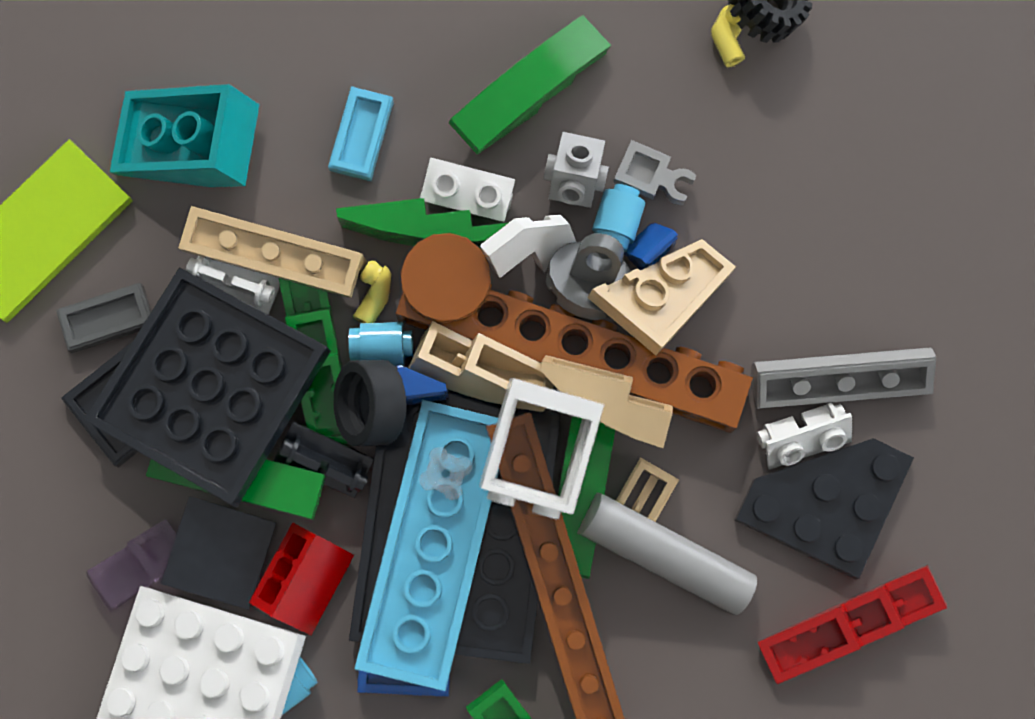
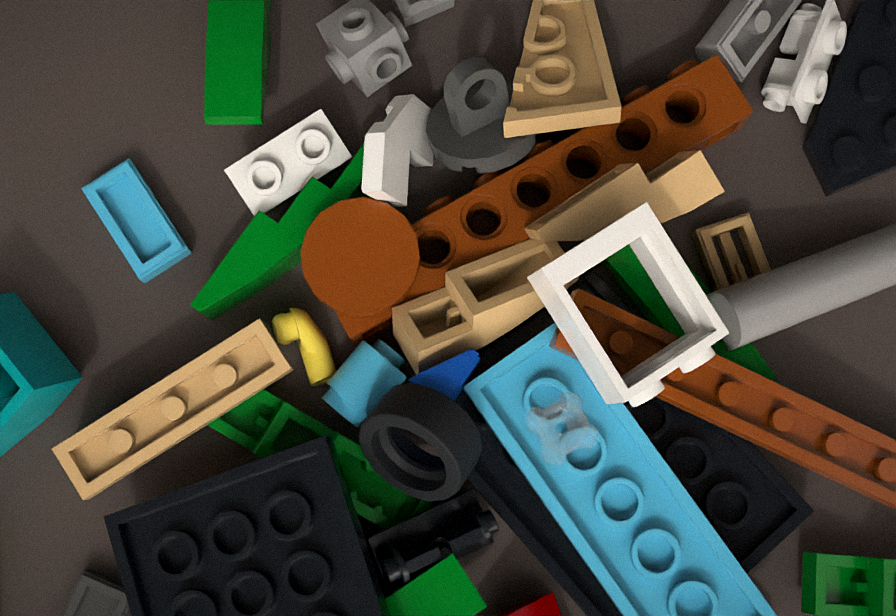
camera: 45 degrees left, 0 degrees up
(247, 285) = (181, 465): white hinge -> none
(619, 214) = (440, 42): medium azure brick -> none
(651, 245) = (499, 39): blue slope -> none

